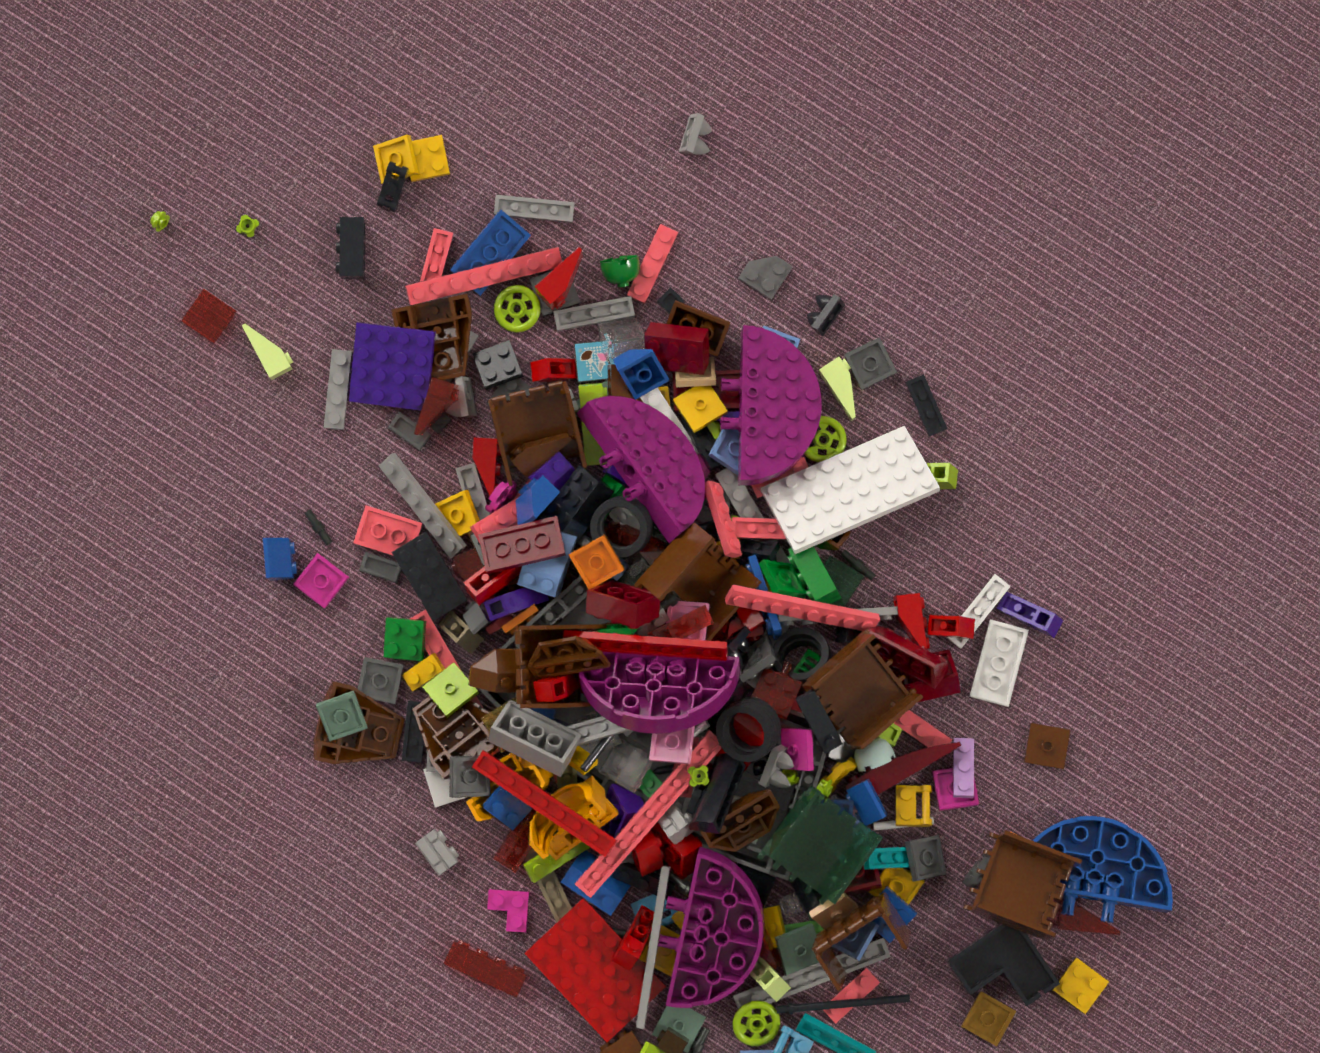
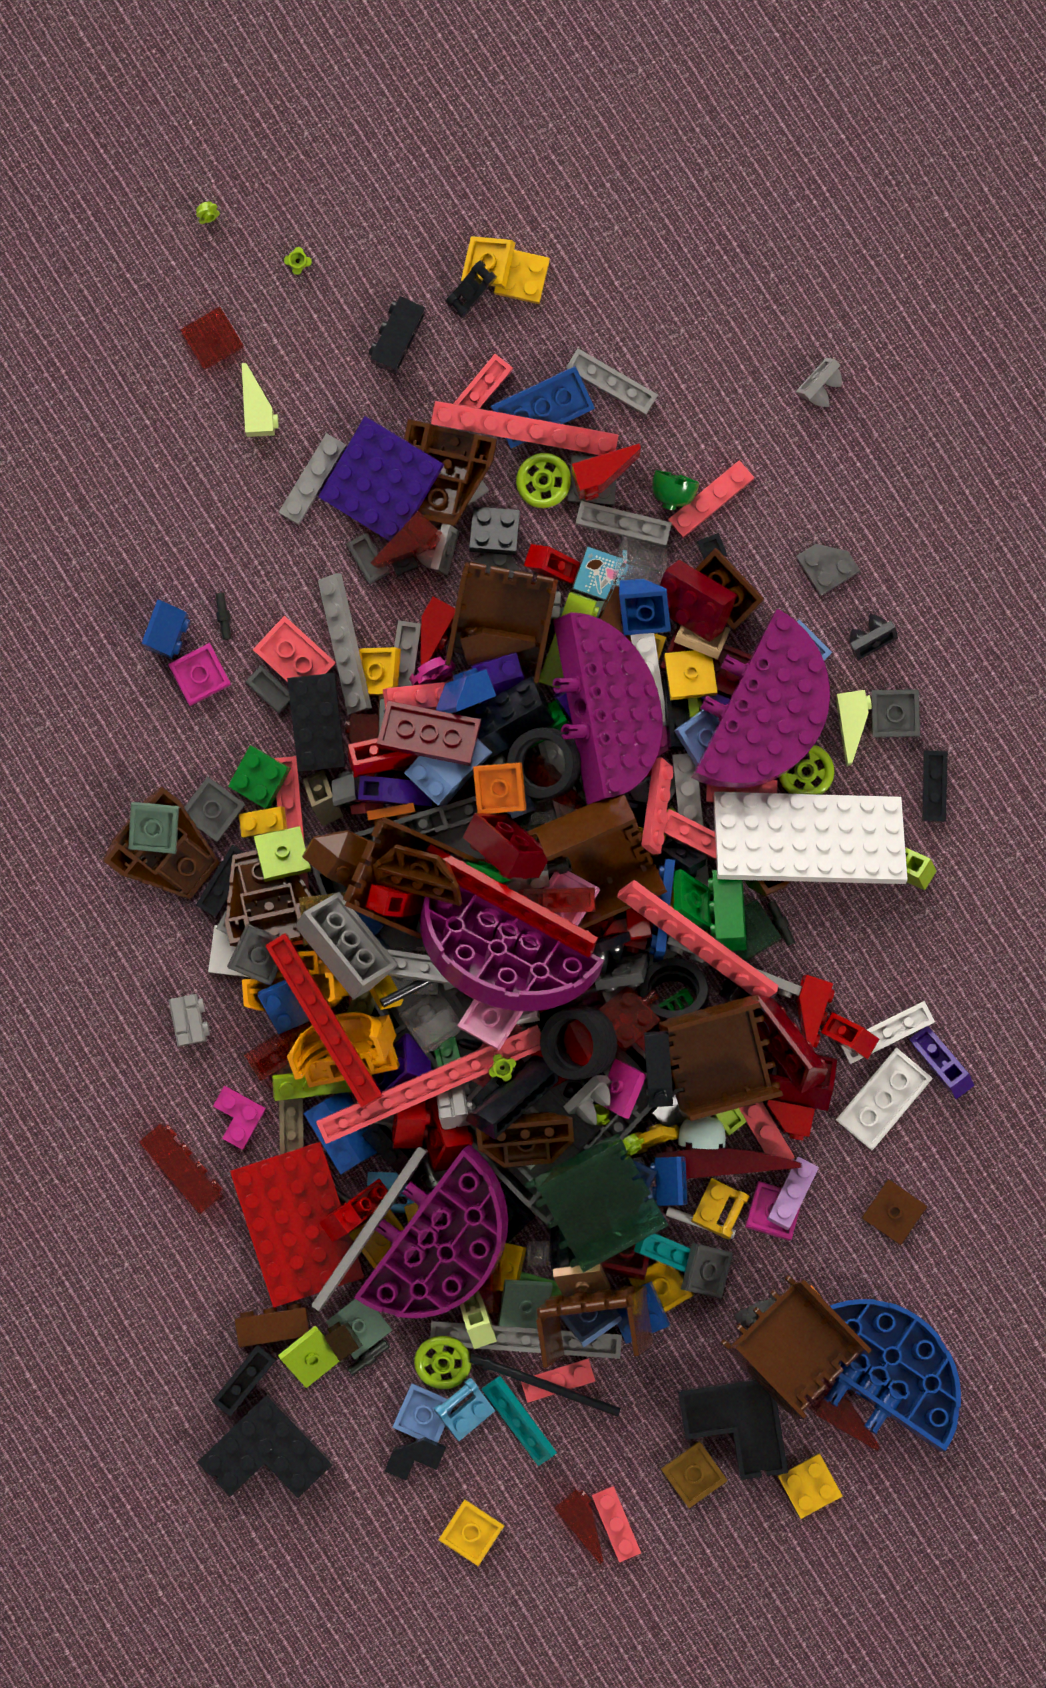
camera: 30 degrees right, 0 degrees up
(936, 710) = (792, 1118): none -> red slope

